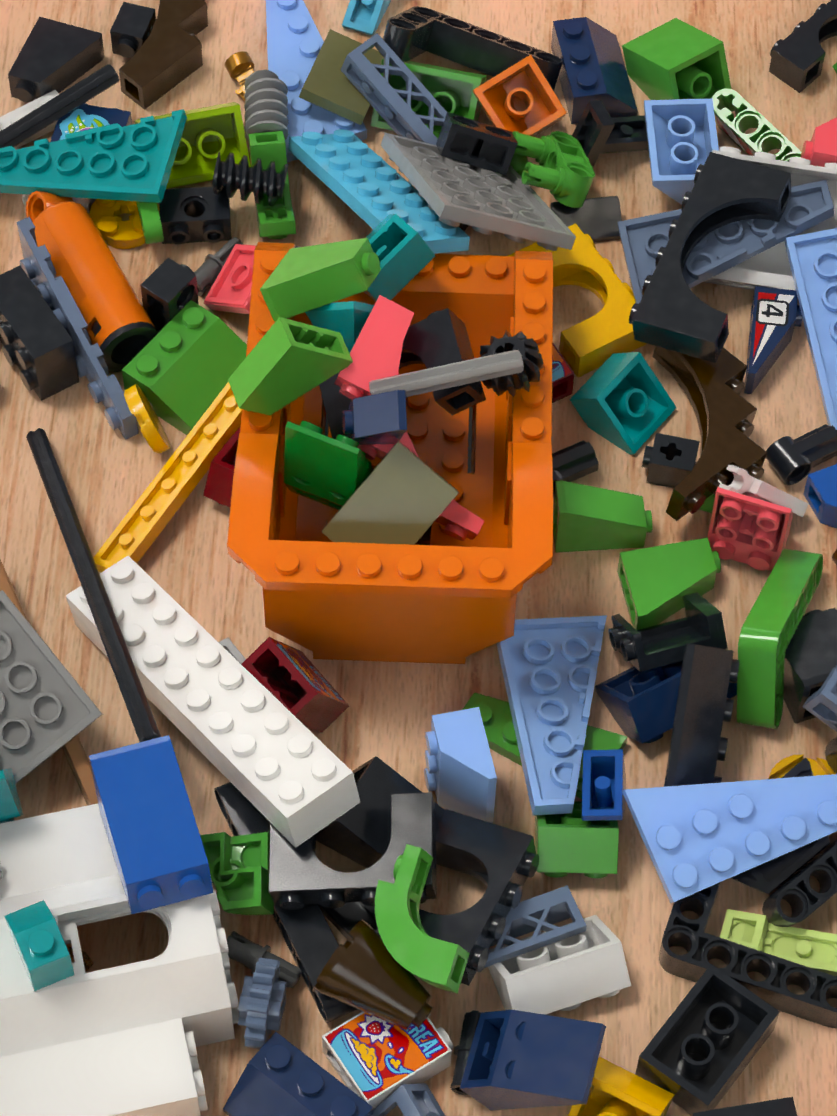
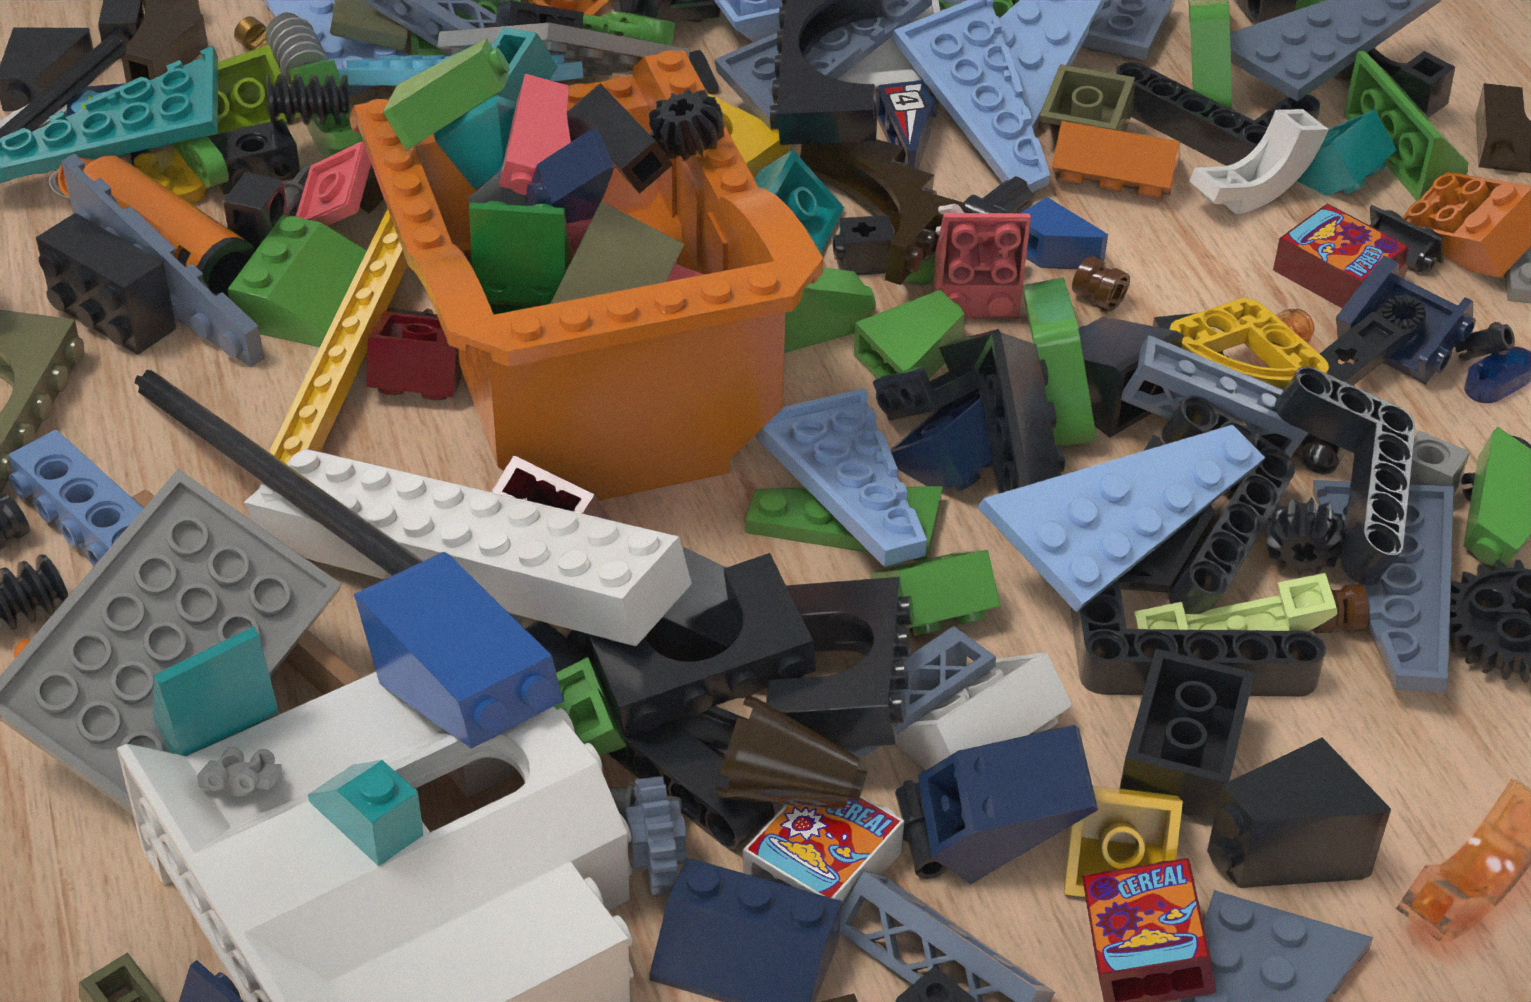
camera: 20 degrees left, 15 degrees down
(147, 419) = (275, 327): yellow tile -> none
(287, 365) = (443, 163): bright green slope -> none
(401, 928) = (835, 706): bright green arch -> none
(451, 374) = (654, 122): light grey axle -> none
(461, 764) = (789, 519): light blue slope -> none
(603, 785) = (949, 516): blue slope -> none

